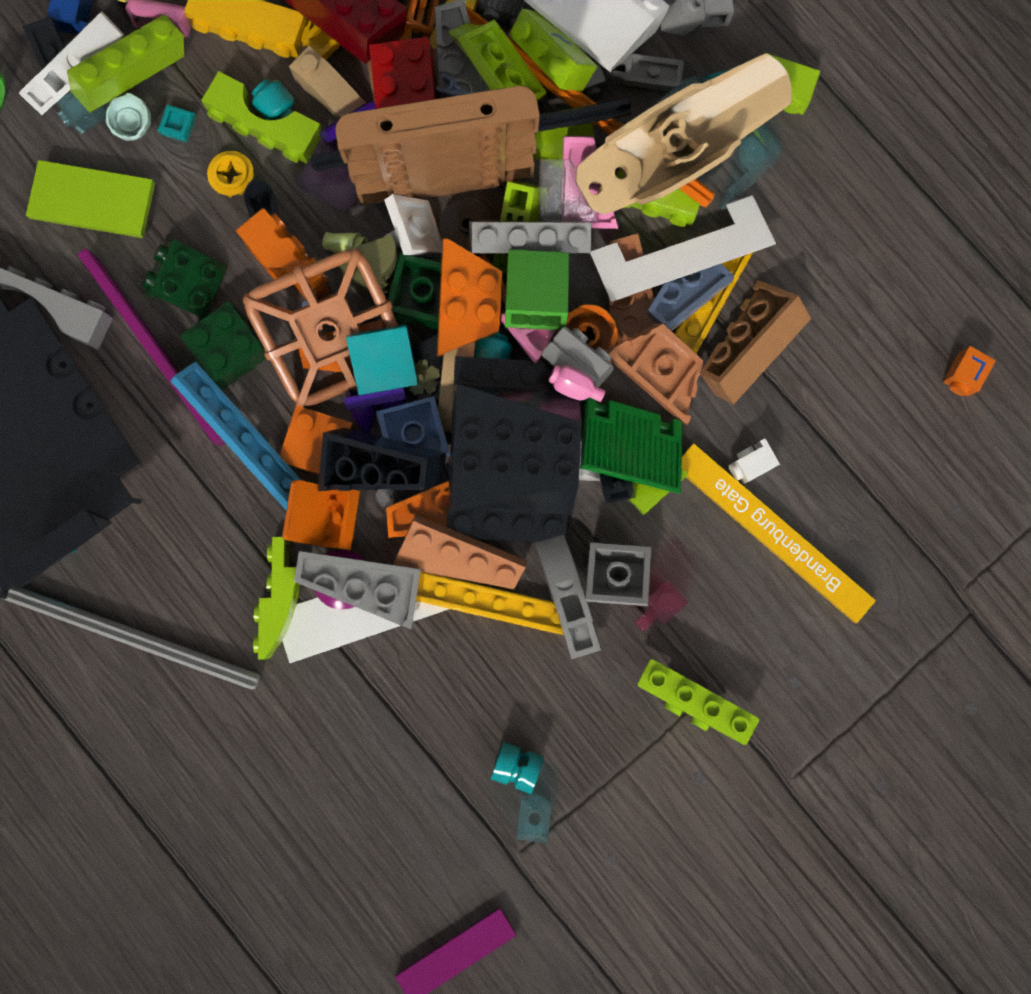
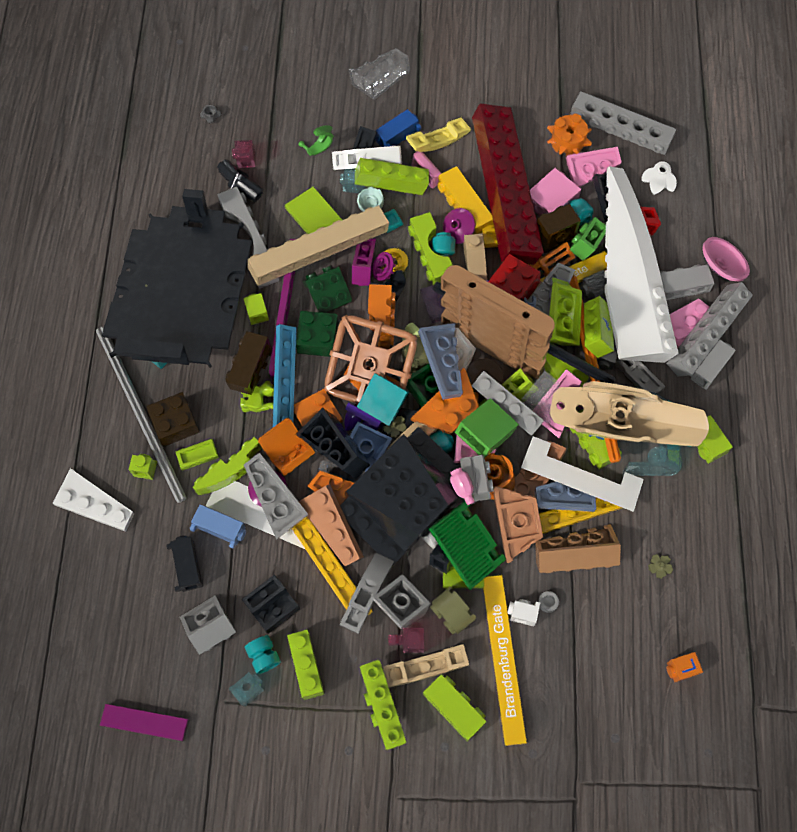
camera: 45 degrees right, 15 degrees down
(120, 233) = (317, 245): none -> tan brick
(120, 378) = (256, 308): none -> lime brick
(146, 781) = (89, 501): none -> white wing
(153, 601) = (172, 419): none -> dark brown brick
(173, 686) = (143, 466): none -> lime brick
(180, 455) = (248, 363): none -> dark brown wedge
(194, 204) = (363, 262): none -> magenta slope
(216, 188) = (382, 260): none -> magenta gear
(222, 614) = (197, 454): none -> lime tile
(226, 487) = (255, 401): none -> lime animal
(273, 47) = (465, 225): none -> magenta dish
(329, 673) = (218, 525): none -> medium blue brick
(333, 748) = (185, 564): none -> black brick
(401, 241) = (441, 352): none -> sand blue wing
(423, 792) = (207, 625): none -> light grey slope
(471, 704) = (271, 604): none -> black slope
(574, 735) = (305, 665): none -> lime brick
(680, 532) = (453, 610): none -> olive brick
(702, 616) = (426, 666): none -> tan slope
(767, 427) = (548, 601): none -> light grey tile
(771, 631) = (455, 707): none -> lime brick
(849, 280) = (660, 566): none -> olive plant

